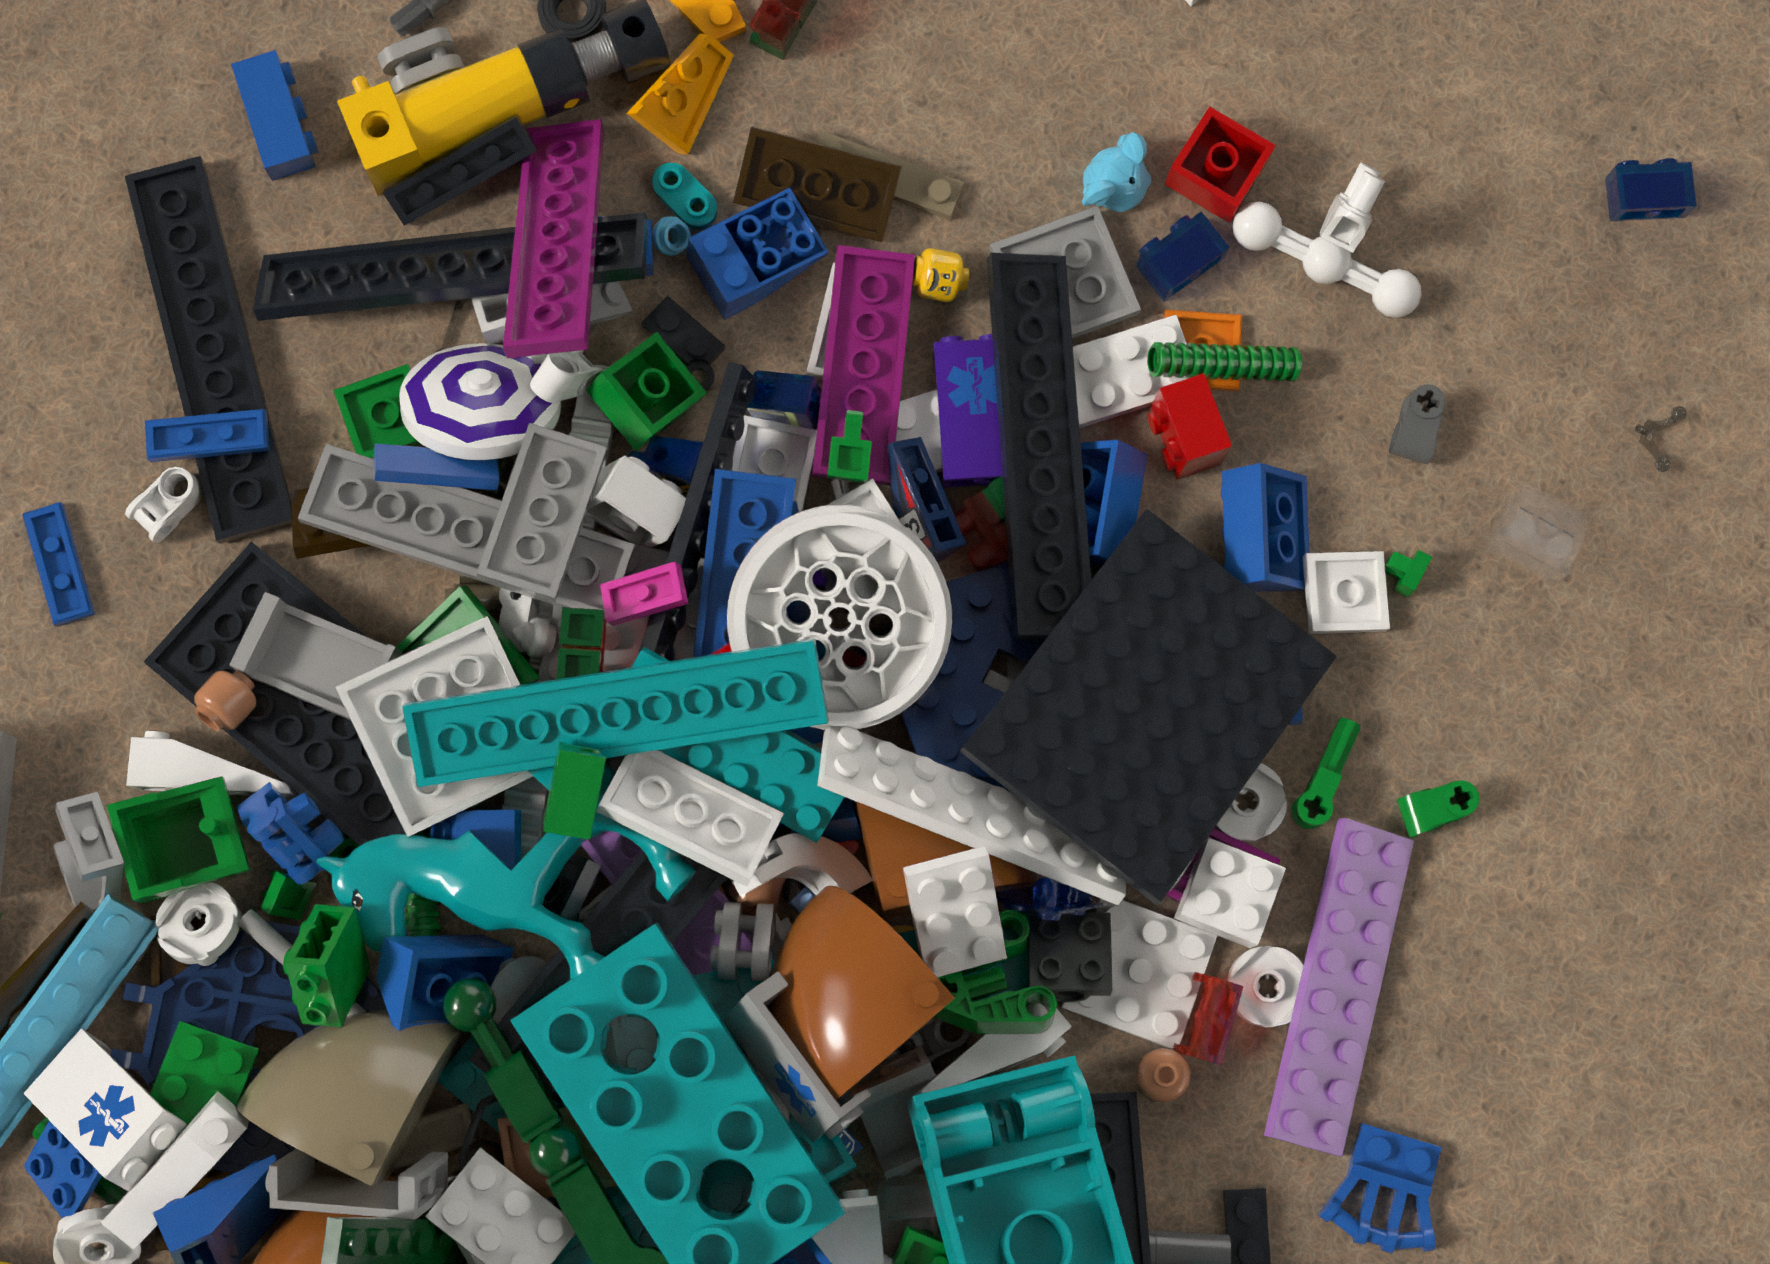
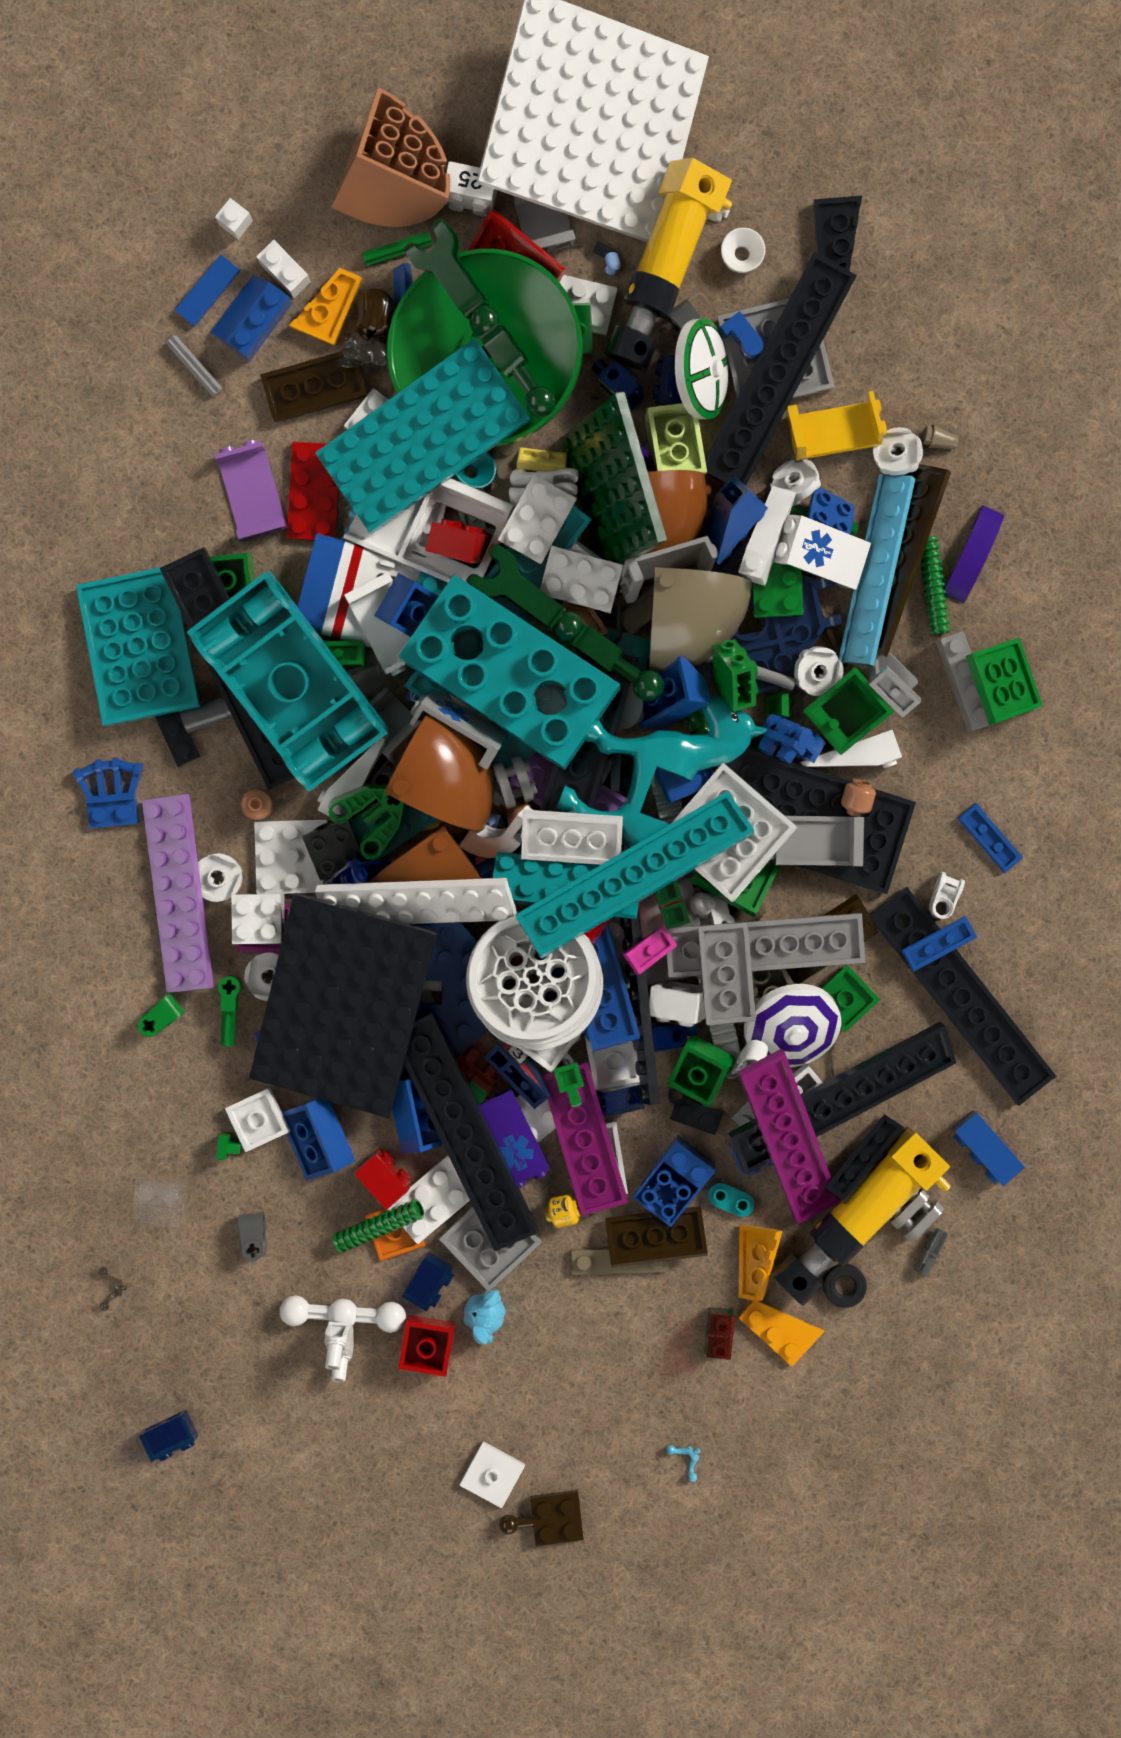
camera: 165 degrees right, 10 degrees up
(428, 467) = (802, 972): blue tile -> none
(574, 791) = (639, 822): green hinge -> none
(679, 236) = (724, 1175): medium azure plate -> none
(955, 911) = (403, 841): white plate -> none
(1212, 1019) = (241, 845): clear red hinge -> none

